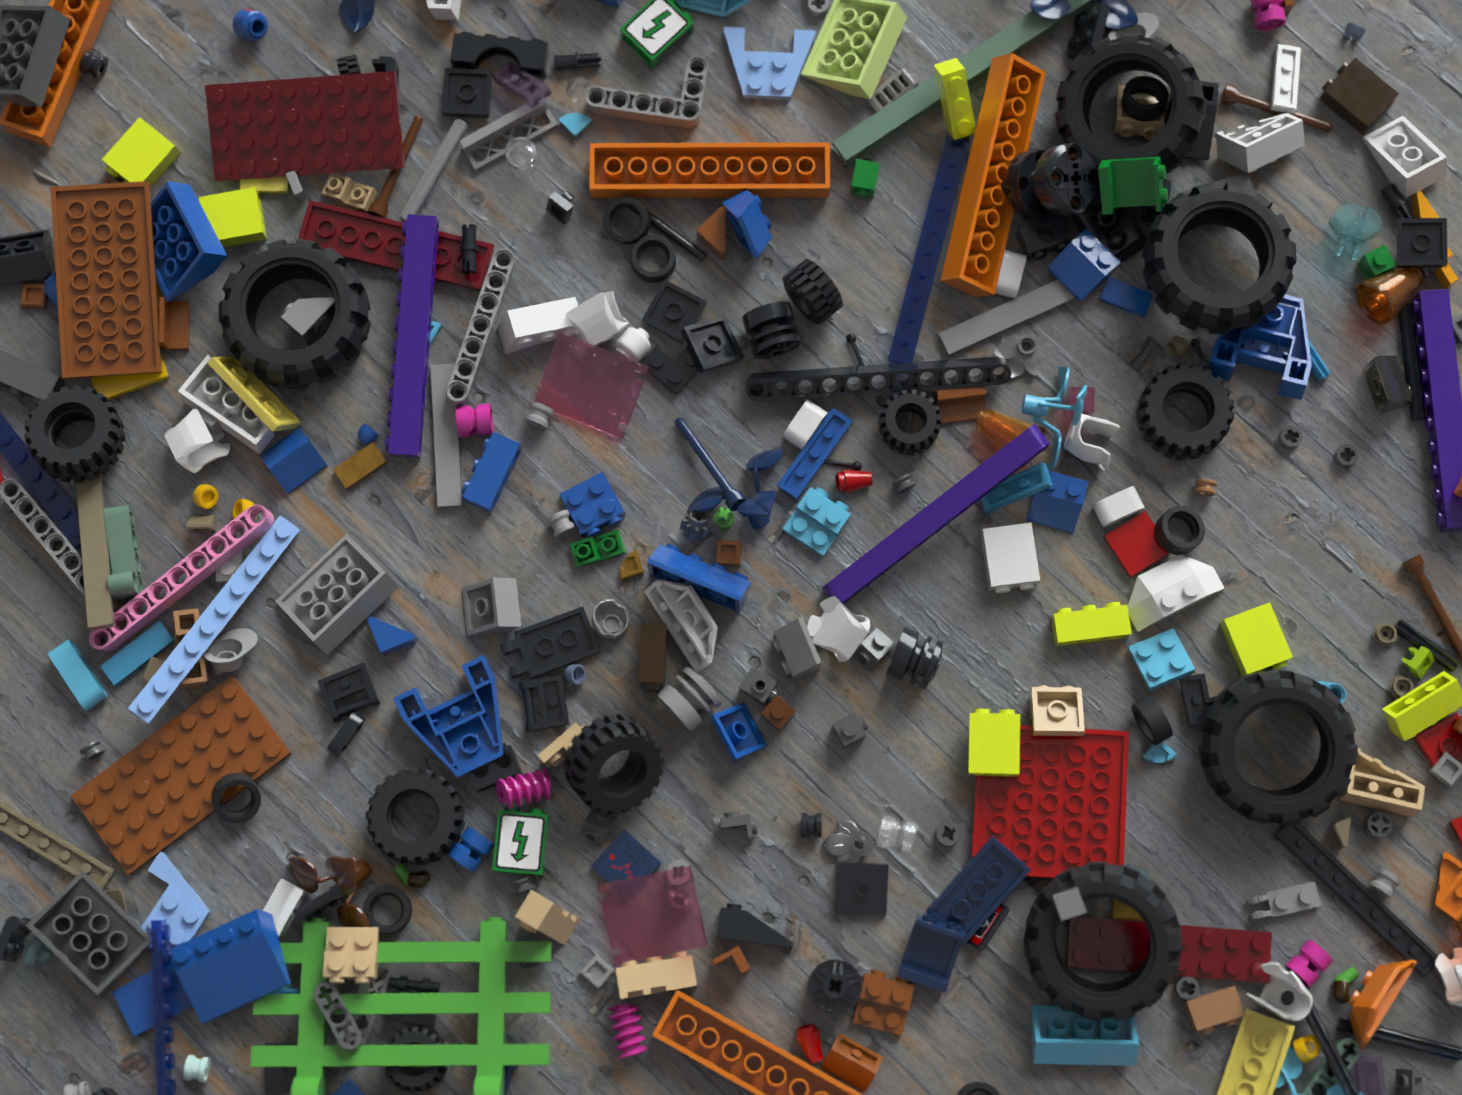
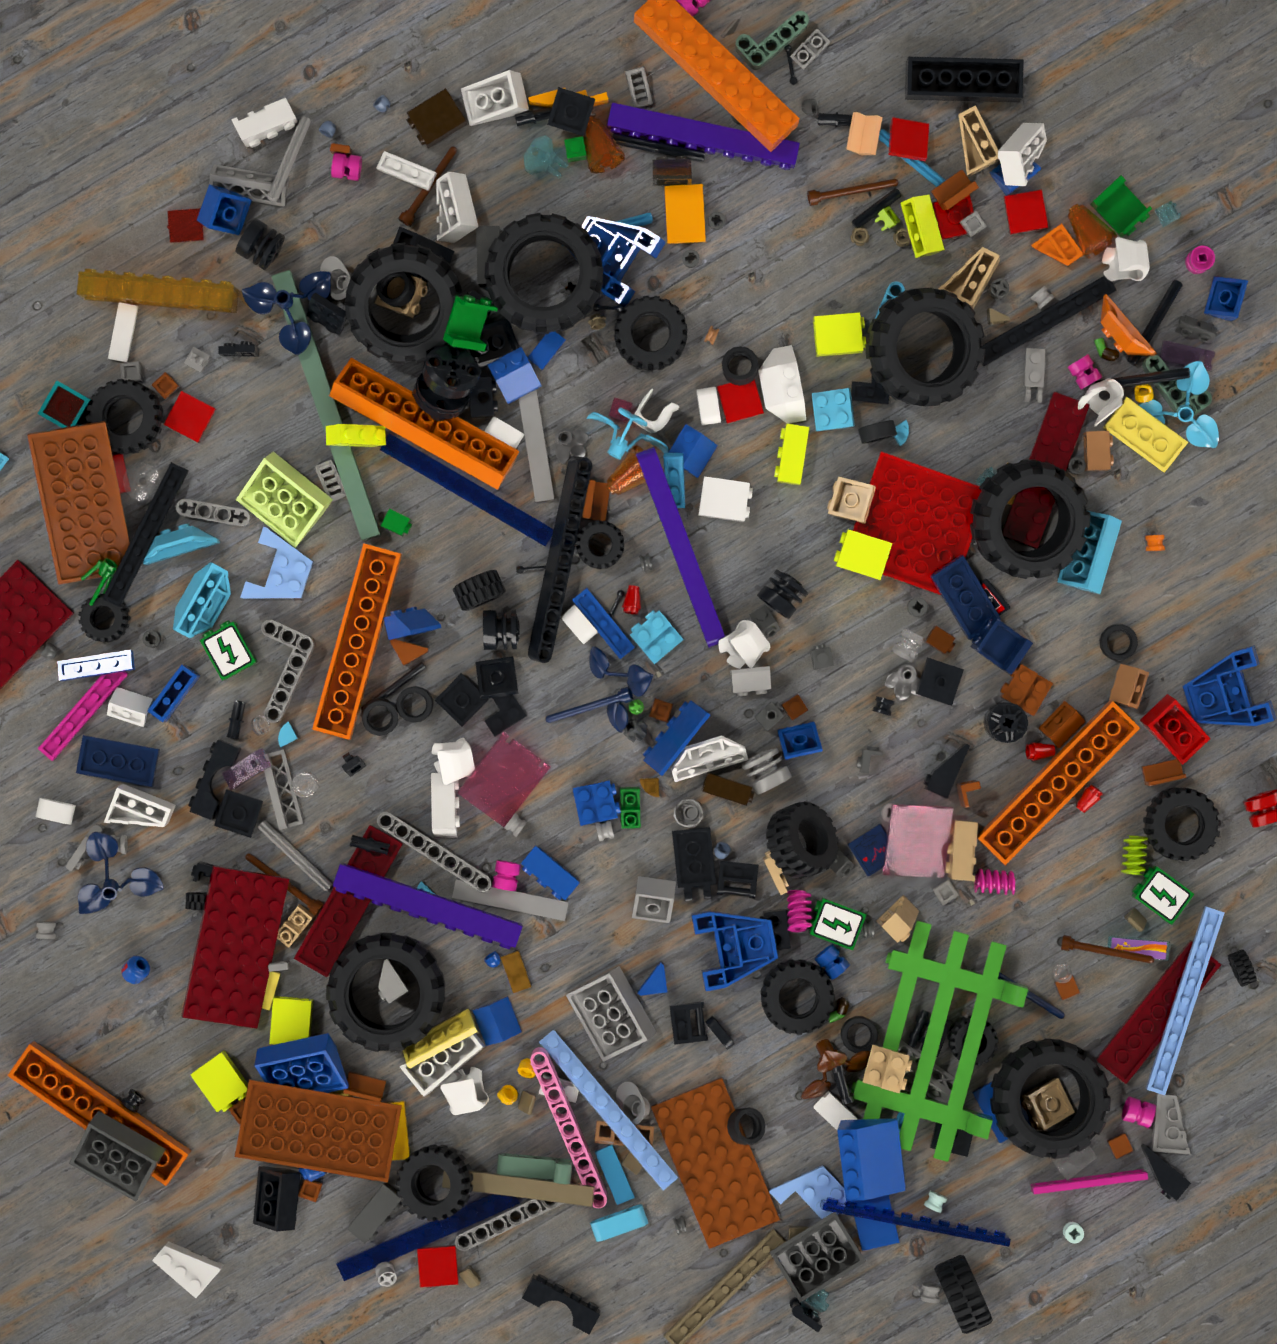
camera: 70 degrees left, 10 degrees up
(352, 1029) = (942, 1081): dark grey beam -> none
(633, 344) = (480, 739): white head -> none
(914, 874) = (940, 640): none -> reddish brown brick
(1069, 903) = (1001, 537): light grey tile -> none
(1342, 416) = (685, 214): none -> light orange tile

